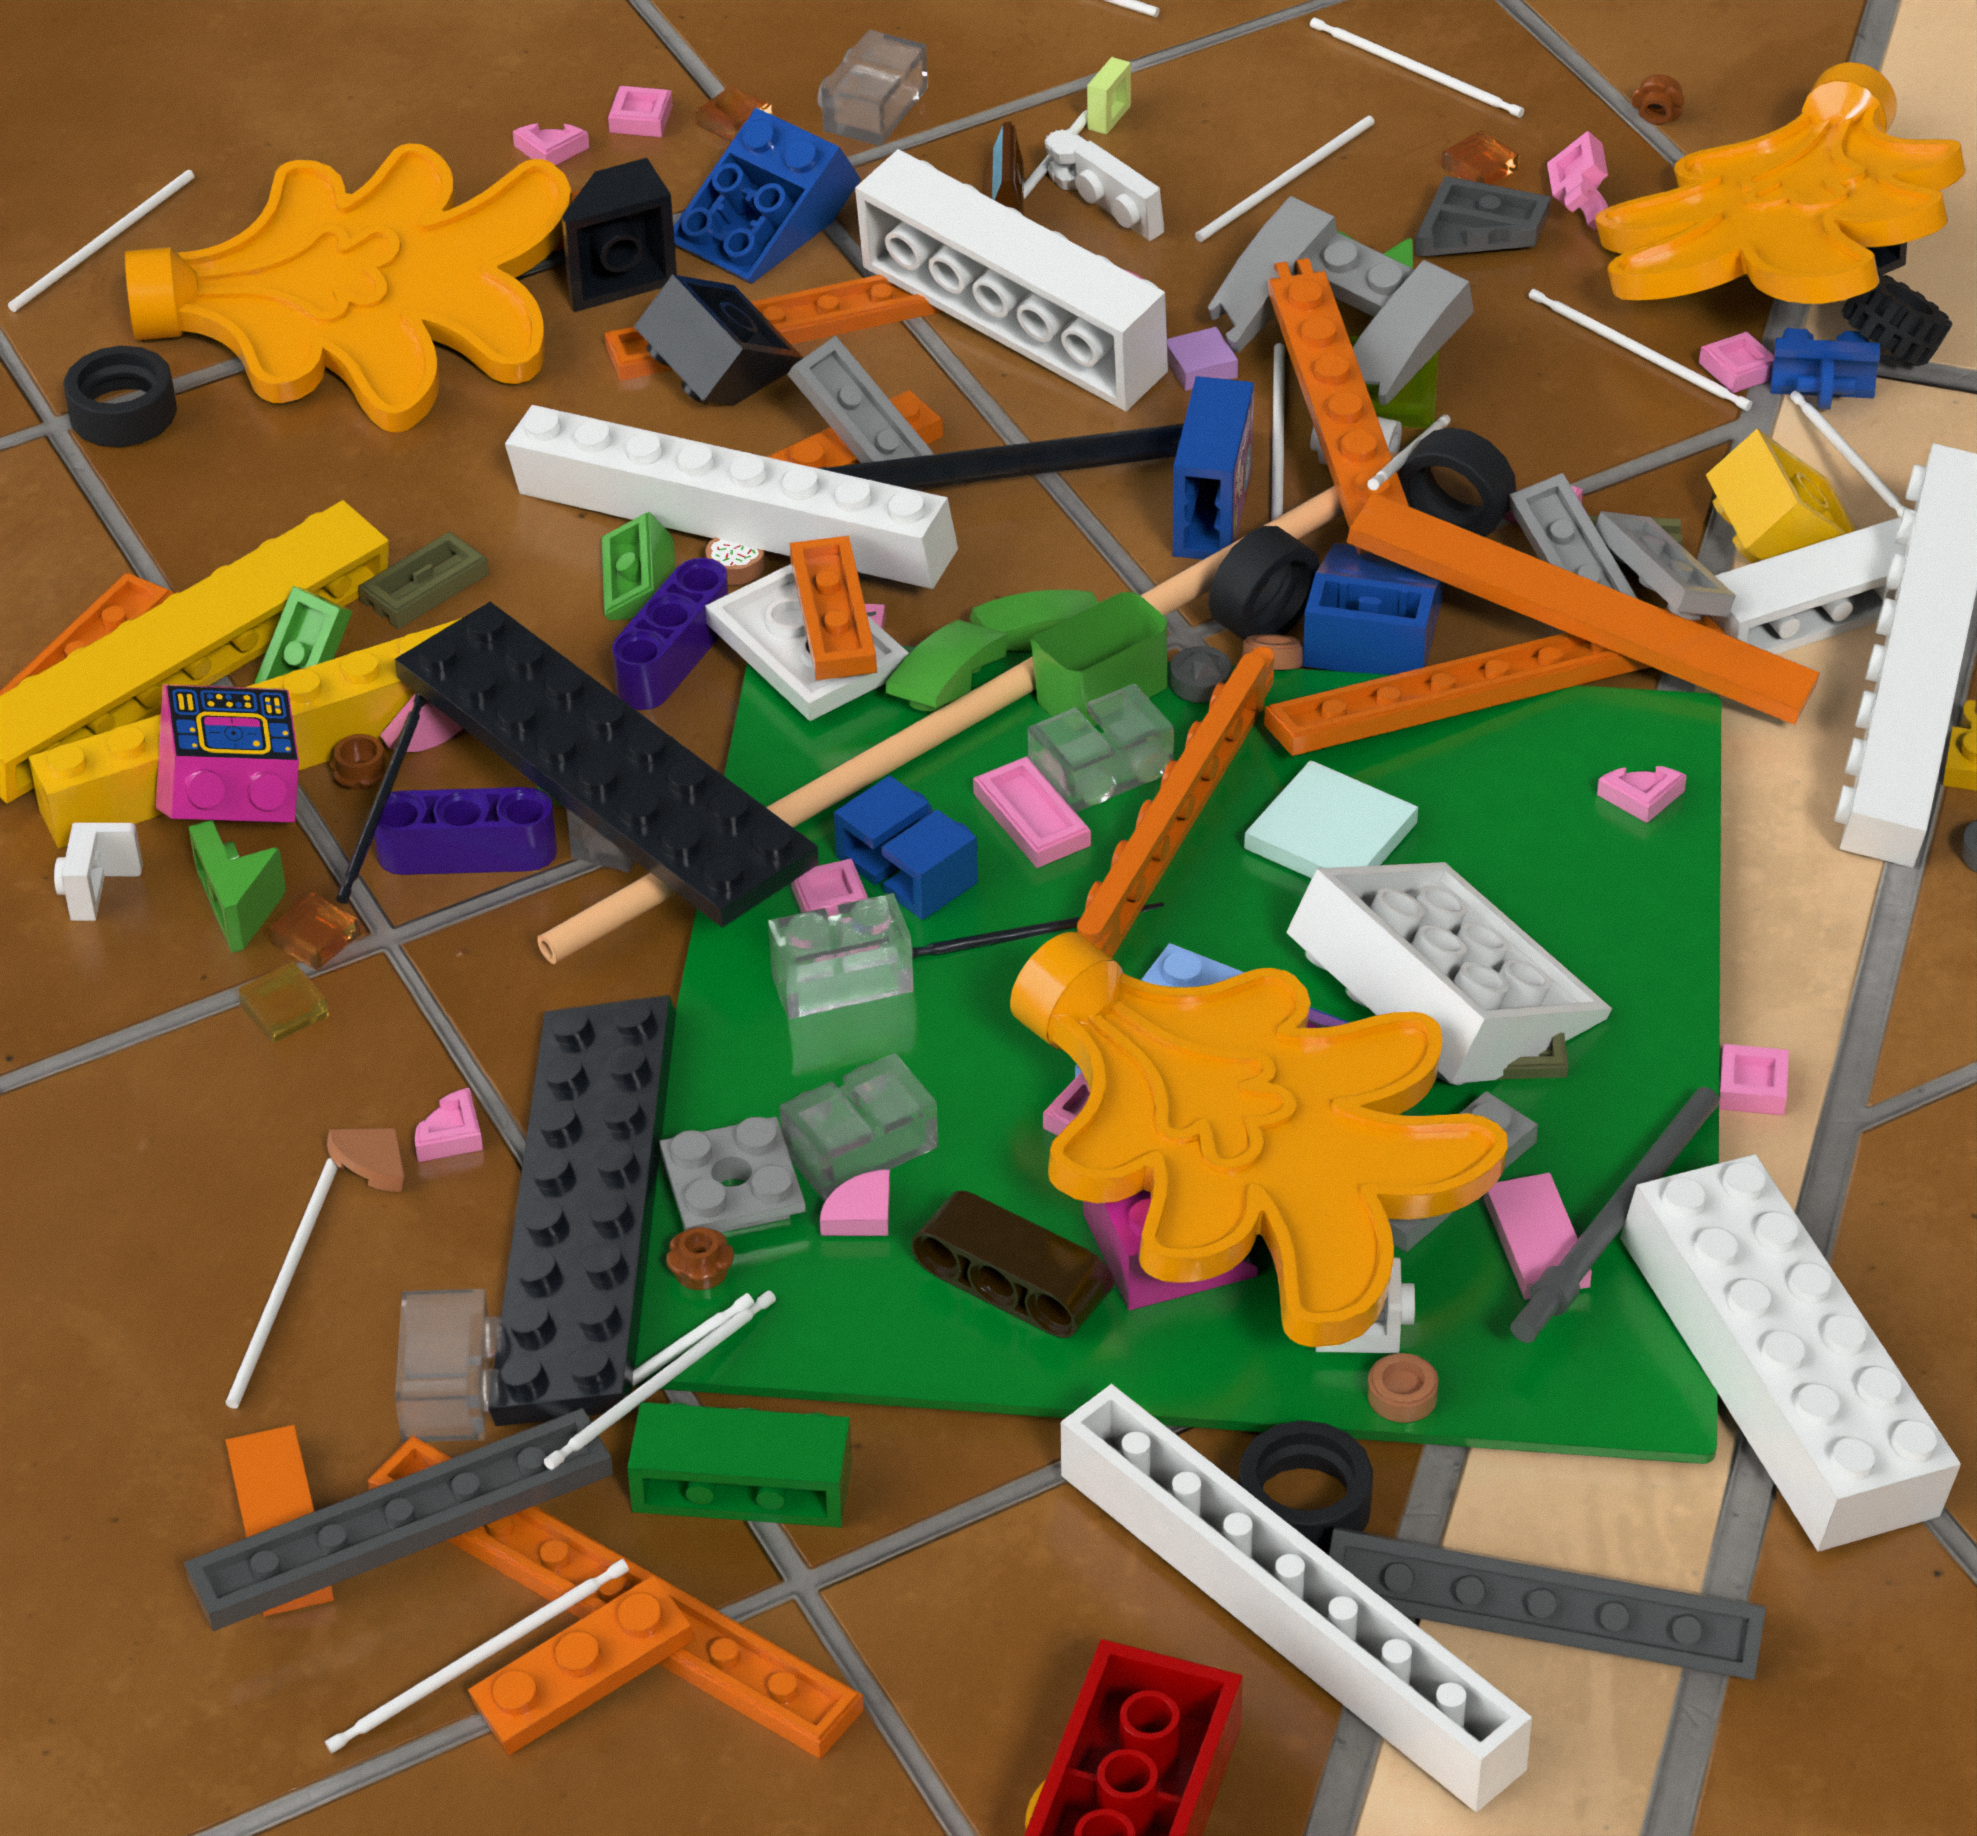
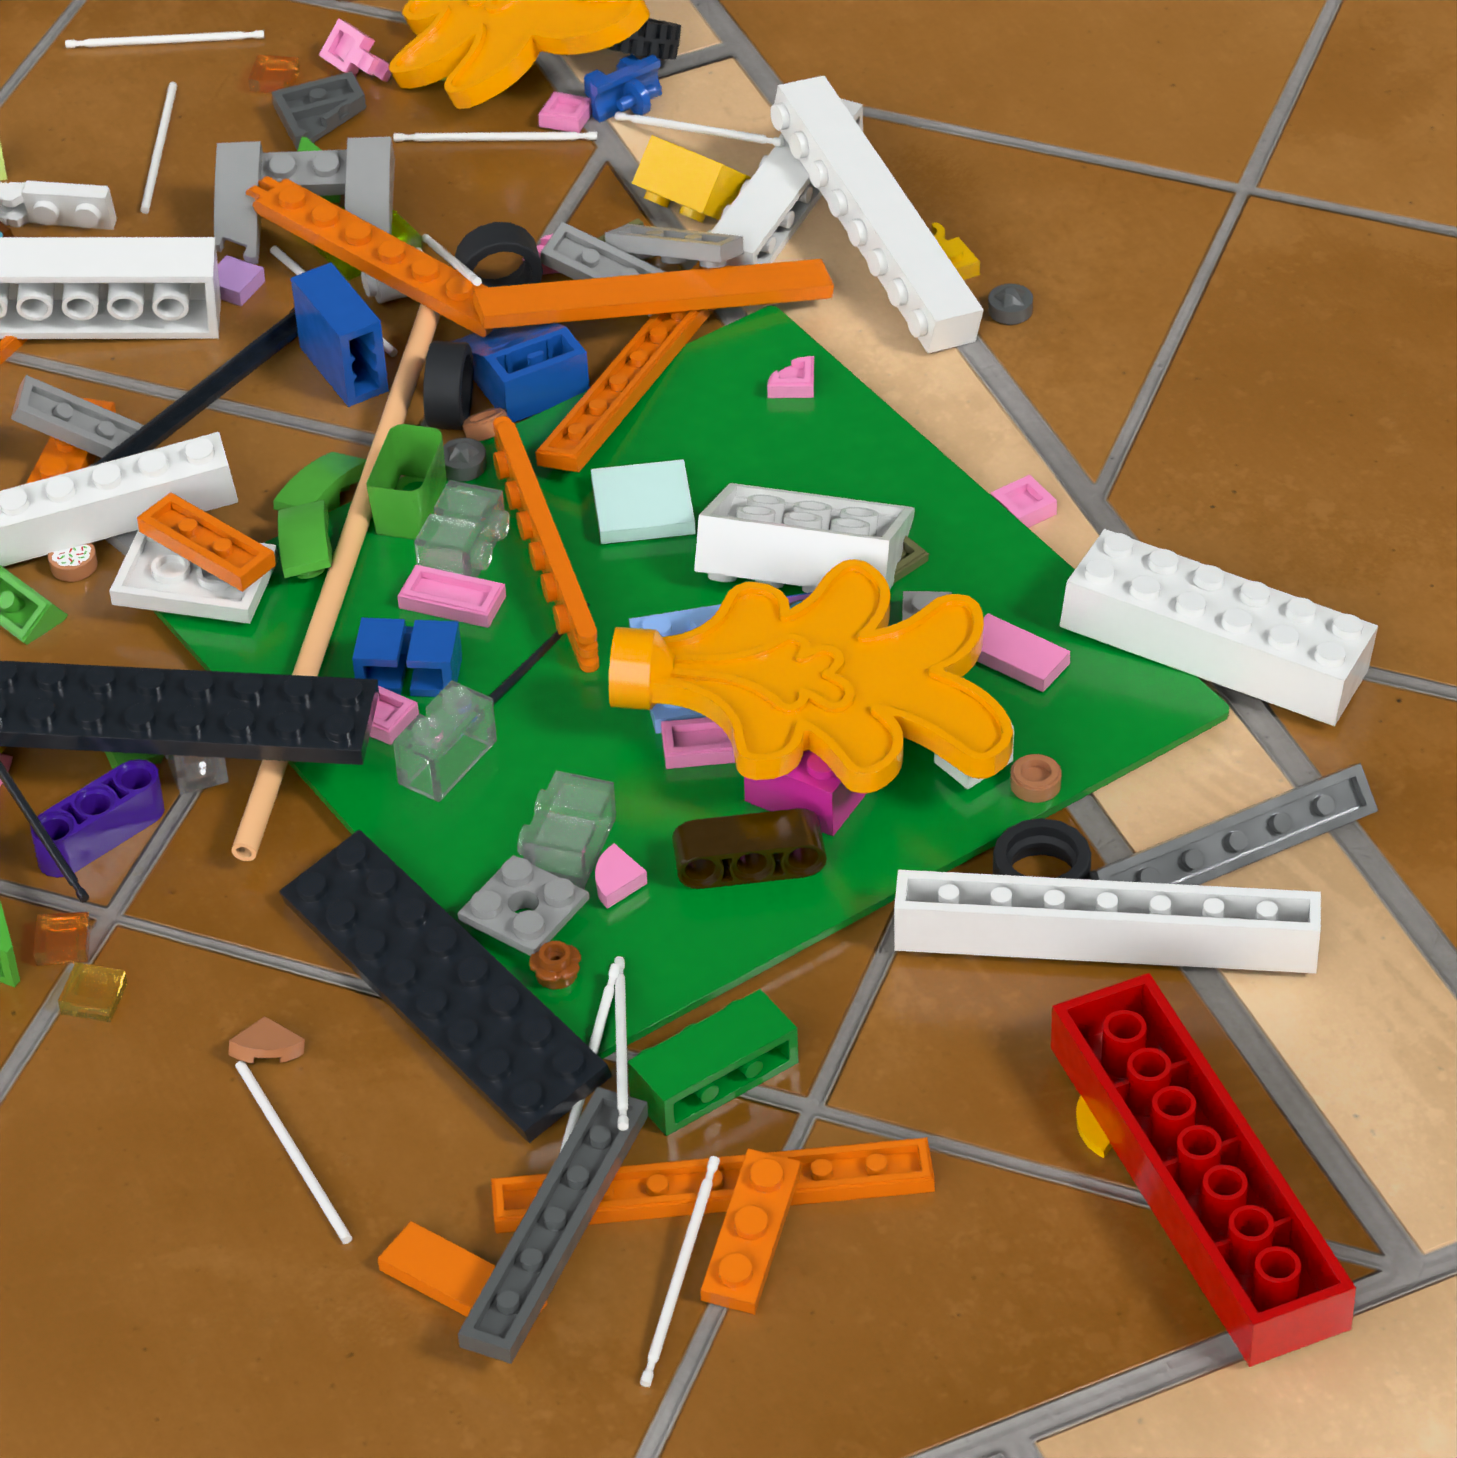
camera: 40 degrees left, 0 degrees up
(445, 1365) = (464, 1113): clear piece -> none
(449, 1128) = (295, 996): bright pink tile -> none
(668, 634) = (91, 614): dark purple beam -> none
(1560, 1284) = (1068, 665): dark grey bar -> none

